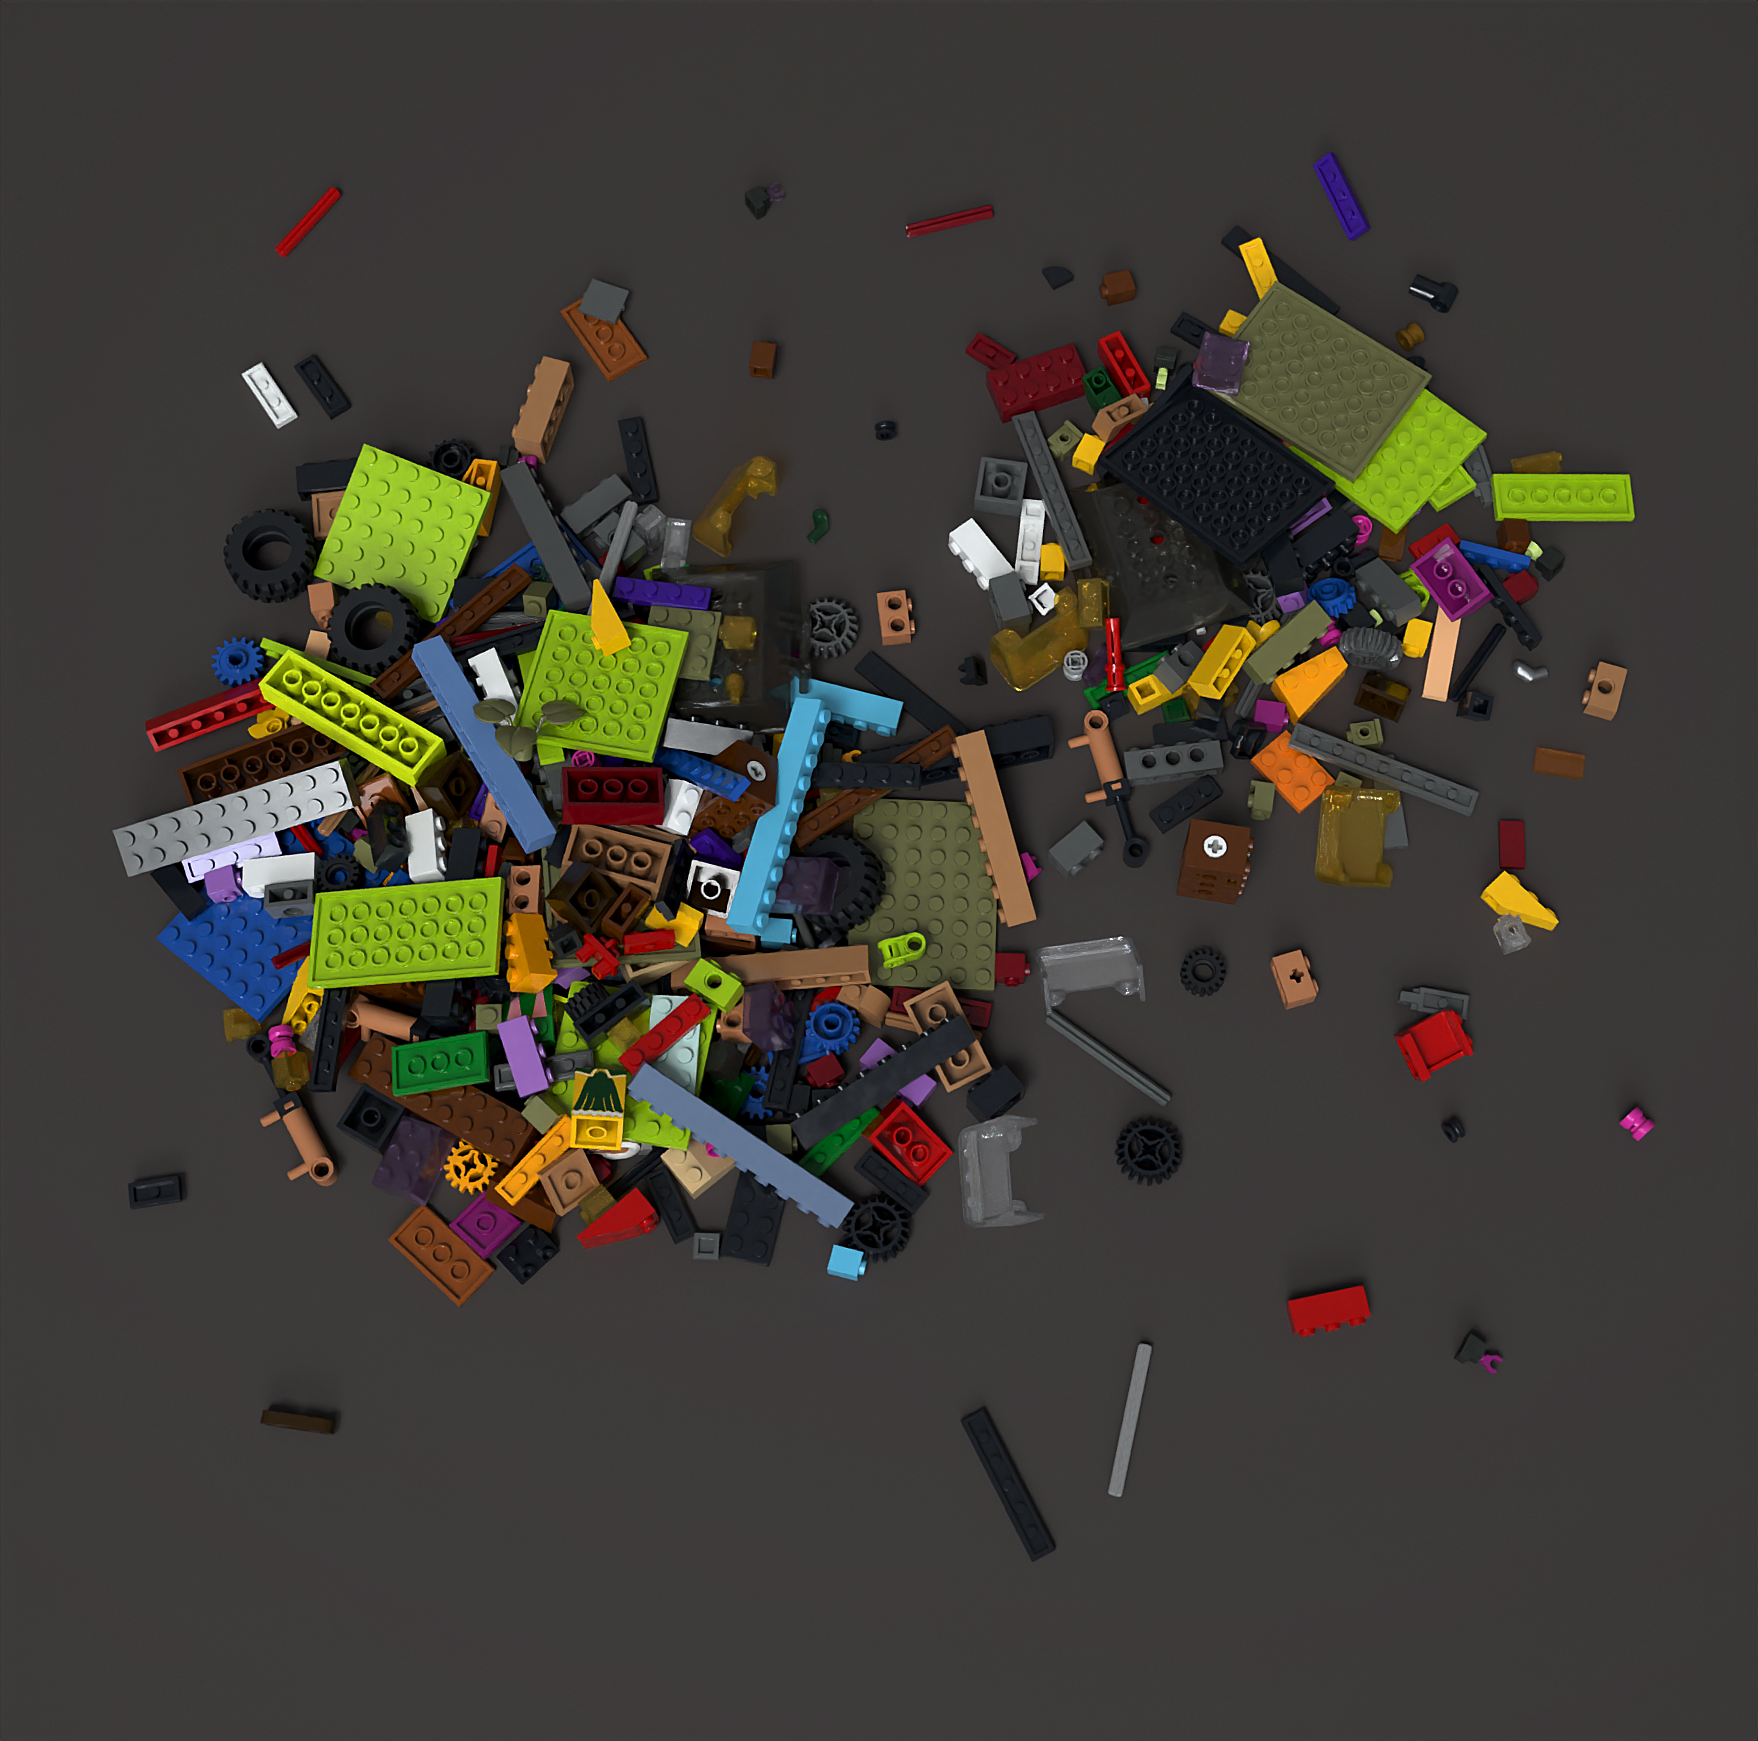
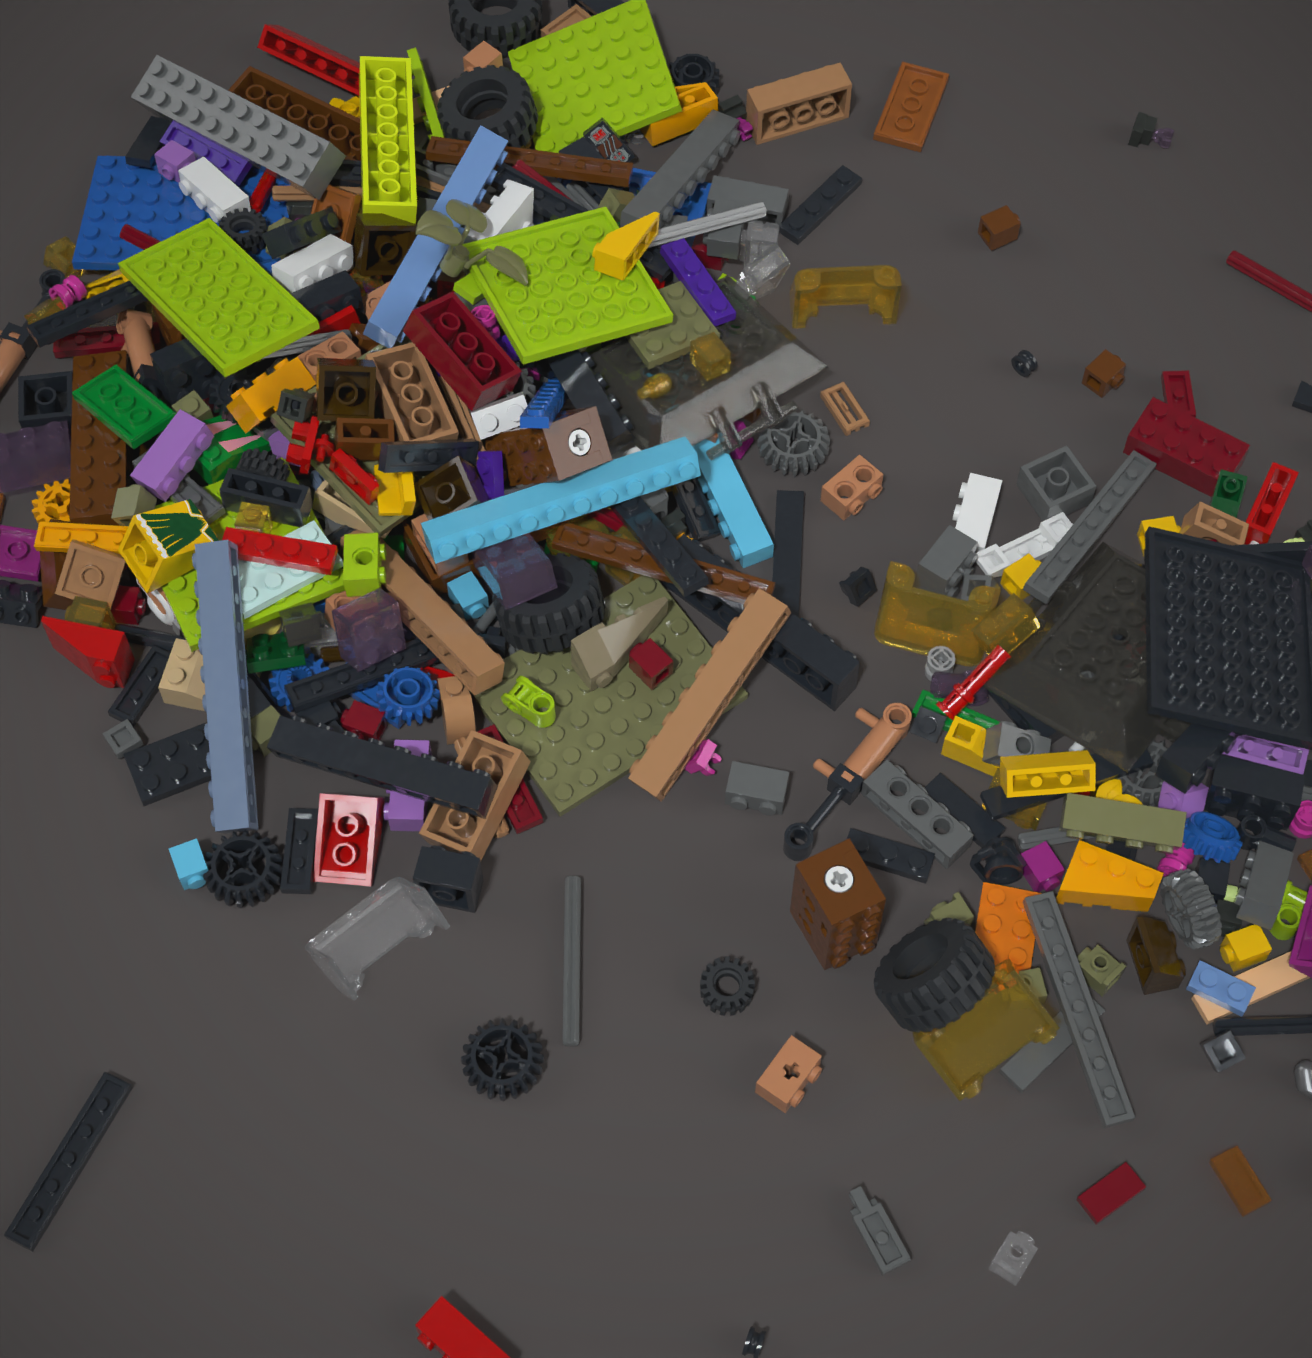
camera: 50 degrees right, 10 degrees down
(231, 654) = (384, 45): blue gear -> none
(290, 899) = (191, 205): dark grey brick -> none
(470, 564) = (608, 142): none -> tile
(603, 301) = (940, 84): dark grey piece -> none
(821, 526) = (888, 376): clear green arm -> none
(823, 574) = (854, 425): none -> medium nougat tile
(832, 1147) = (302, 780): green tile -> none
(906, 872) = (605, 649): none -> dark tan wedge
(934, 849) = (650, 663): none -> dark red brick
(936, 386) = (1104, 373): none -> reddish brown brick
(1011, 969) = (590, 811): dark red brick -> none
(1061, 449) = (1150, 506): olive brick -> none
(1089, 967) = (642, 873): clear windscreen -> none
(1130, 1420) = (213, 1230): light grey axle -> none
(1175, 711) = (973, 782): dark green tile -> none
(1328, 838) = (934, 975): none -> black tyre
(1432, 674) = (1221, 988): none -> medium blue plate
(1433, 1043) = (829, 1256): red panel -> none
(1508, 896) = (1050, 1228): yellow slope -> none

